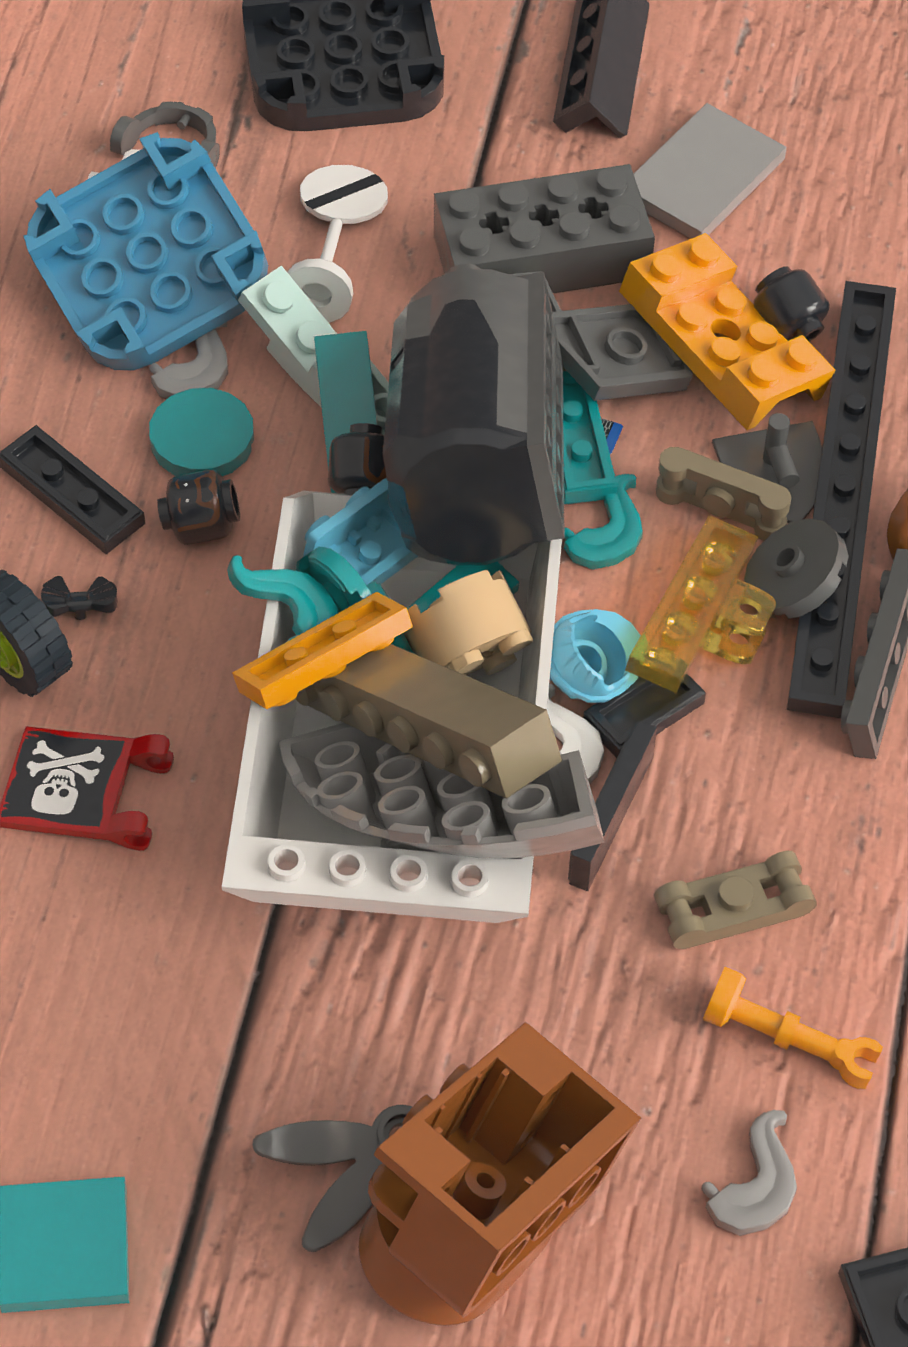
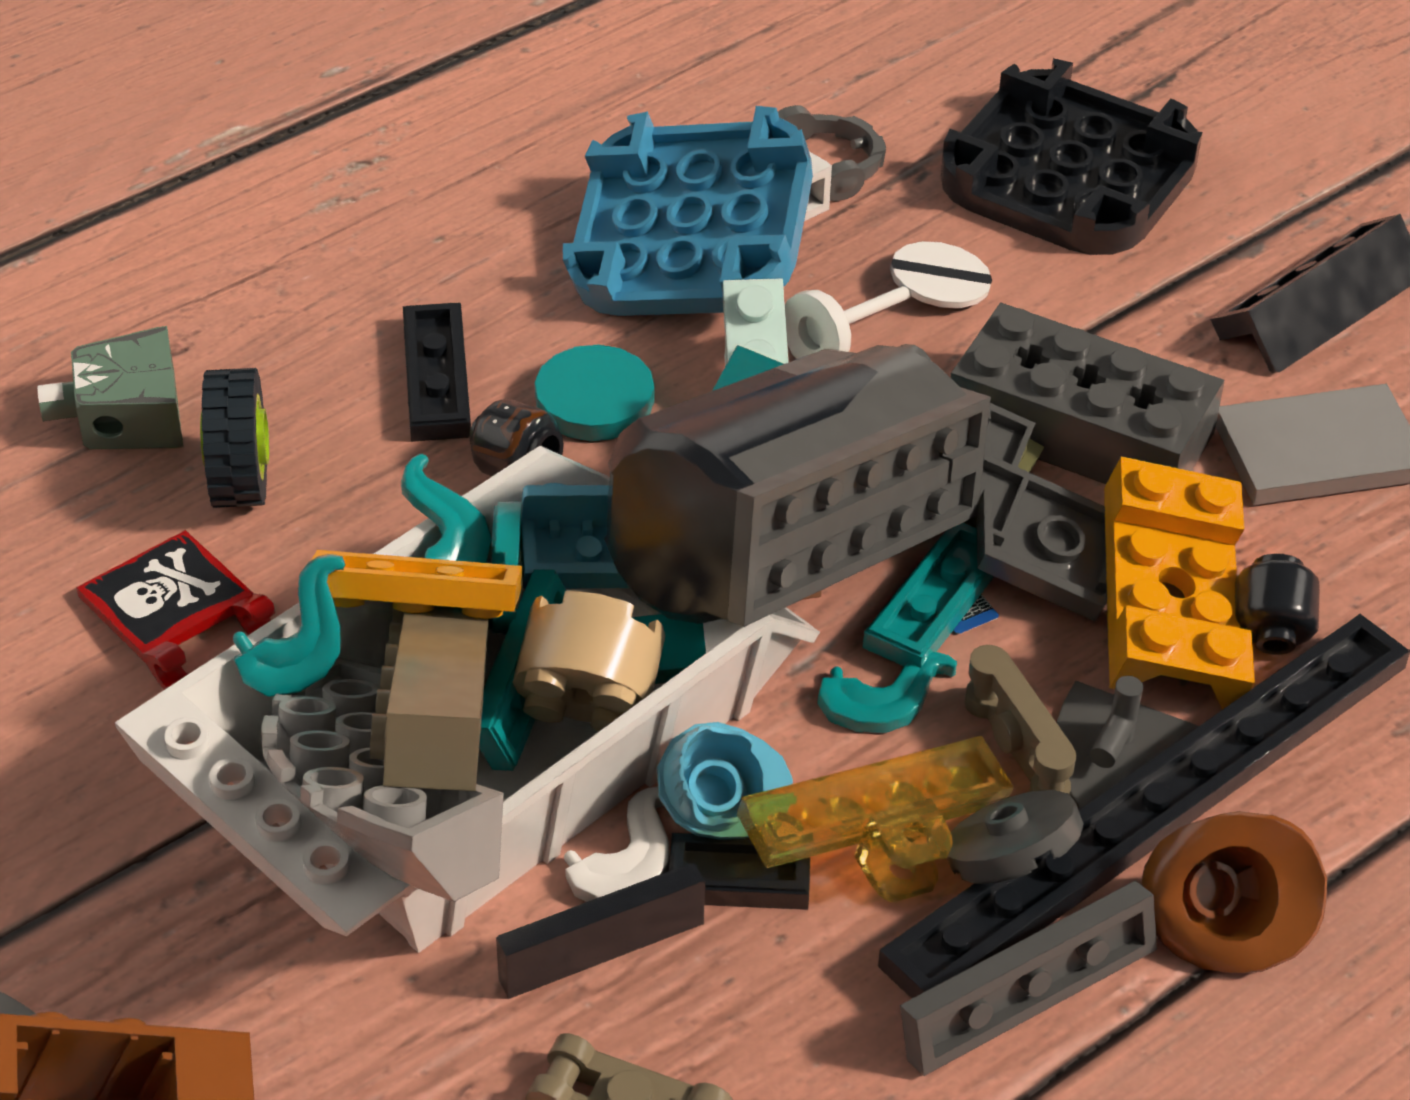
camera: 40 degrees right, 10 degrees down
(59, 600) = (327, 448): black piece -> none
(205, 371) = (655, 346): light grey piece -> none
(297, 751) = (306, 656): none -> teal piece

